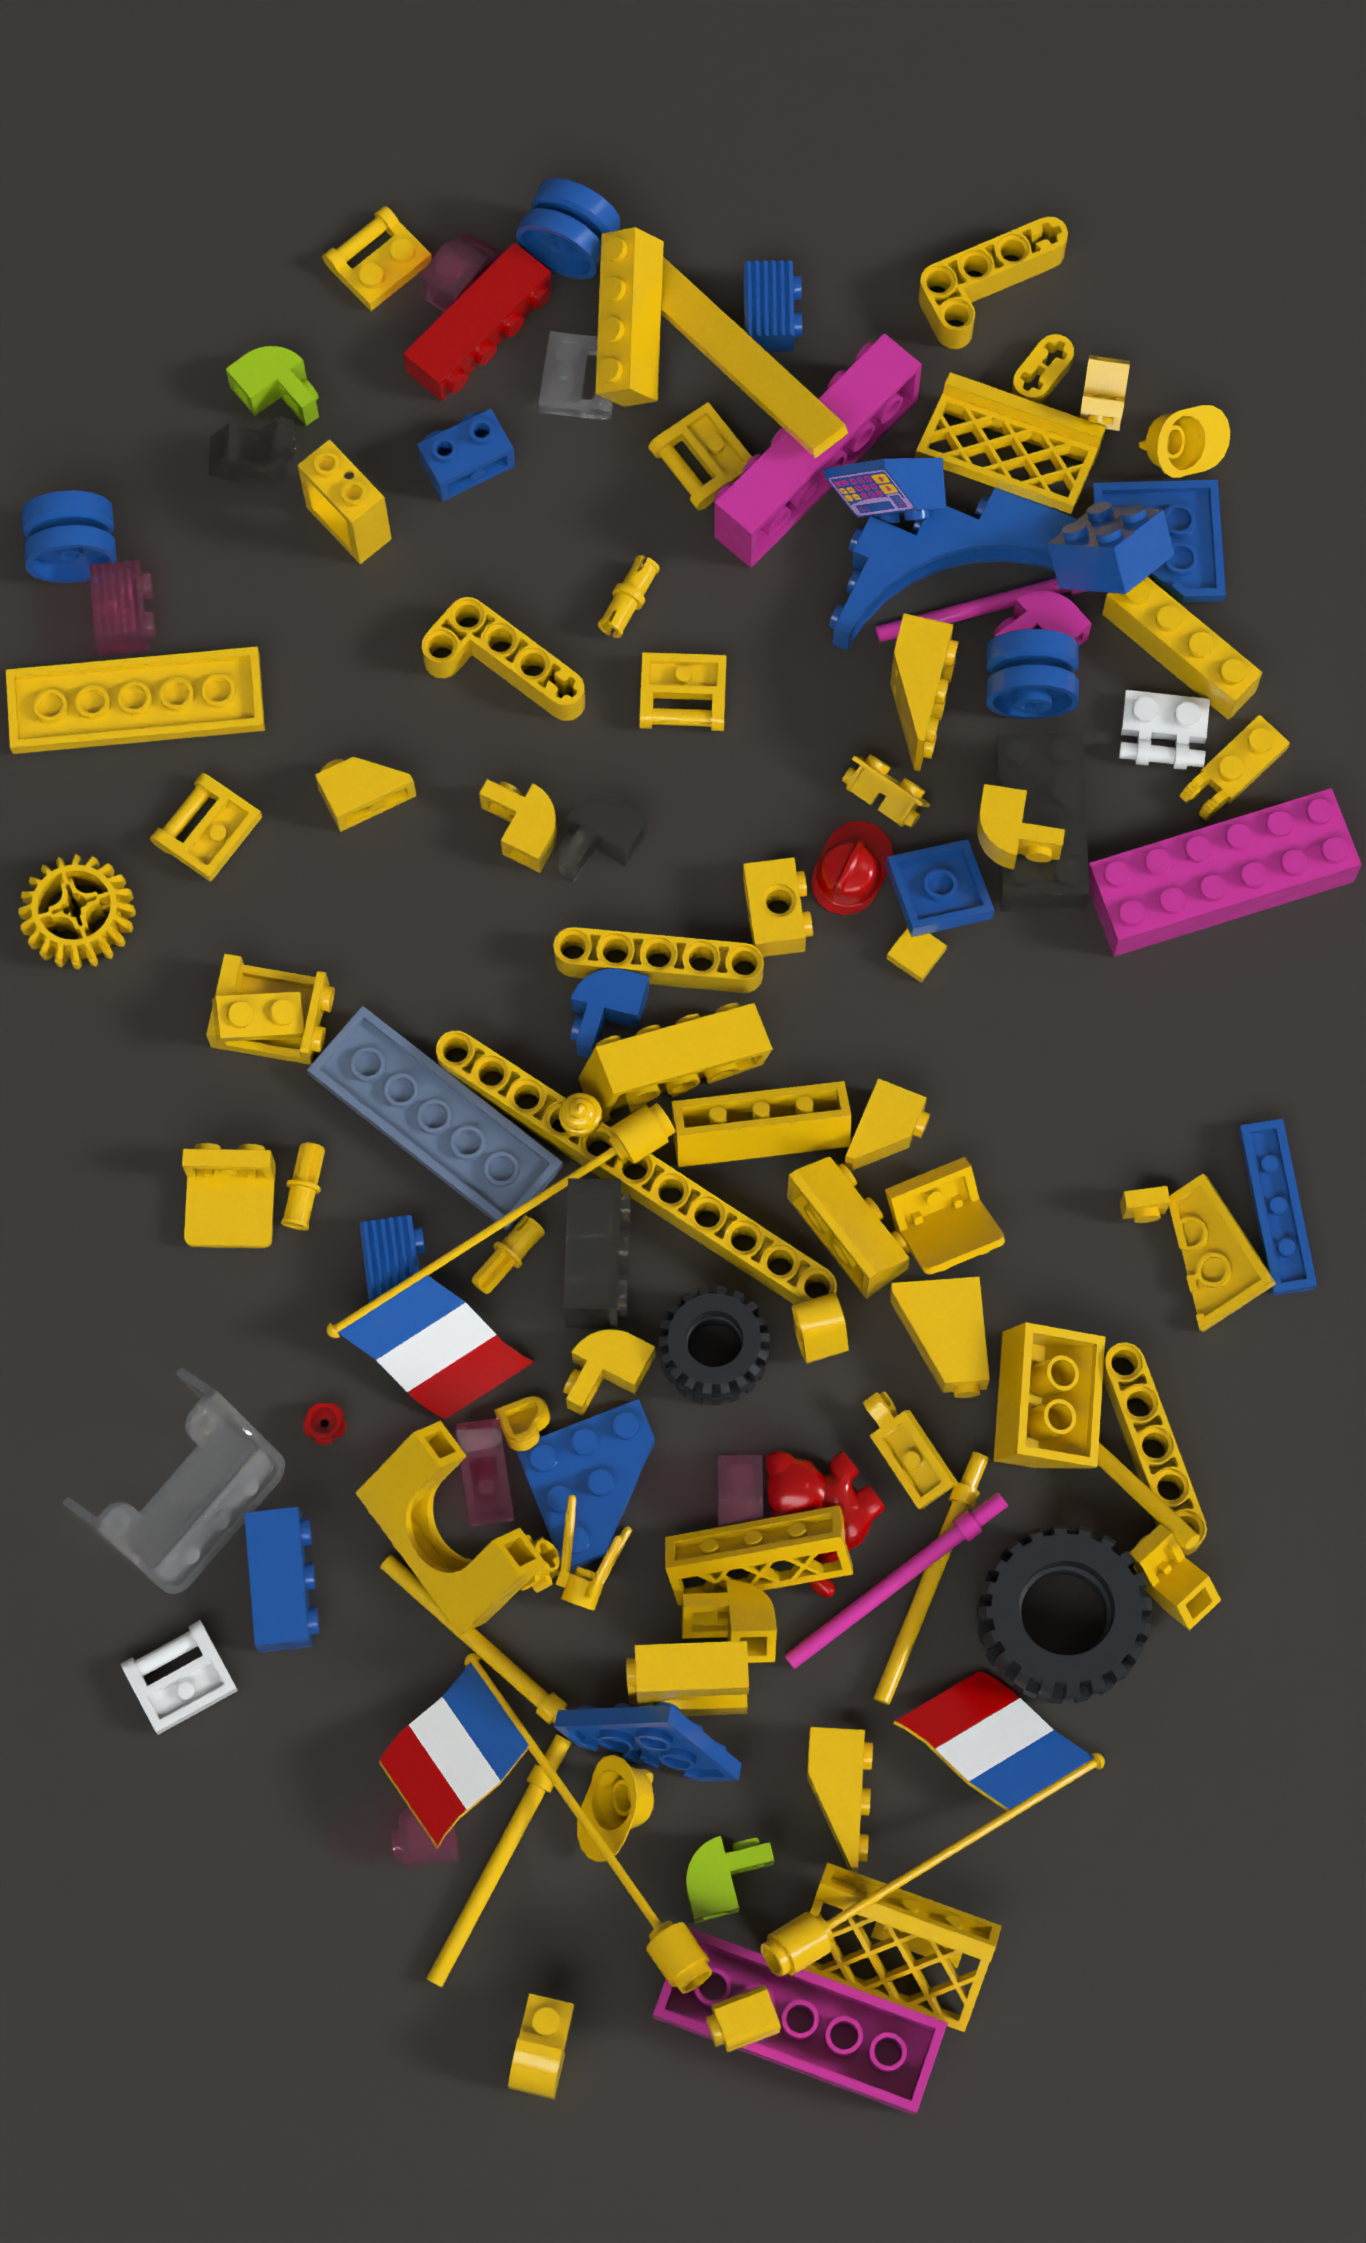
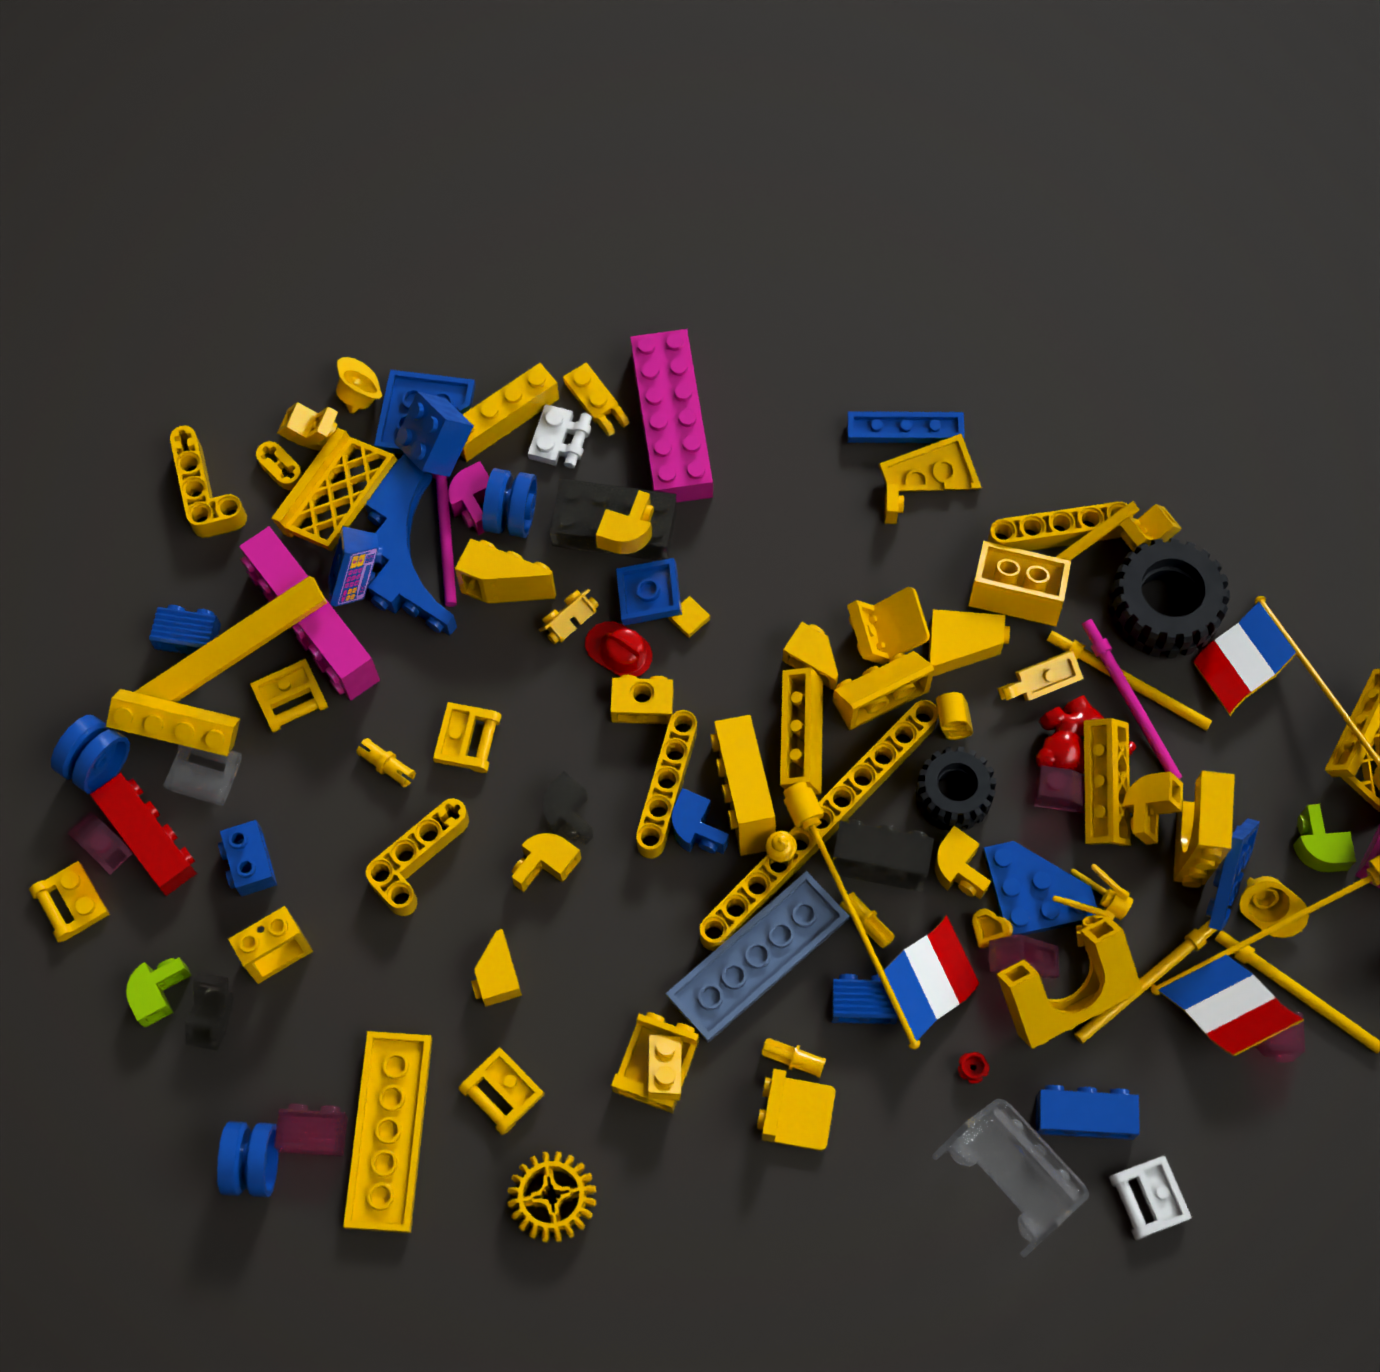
camera: 80 degrees left, 5 degrees down
(836, 1779) = (1263, 759): yellow slope -> none

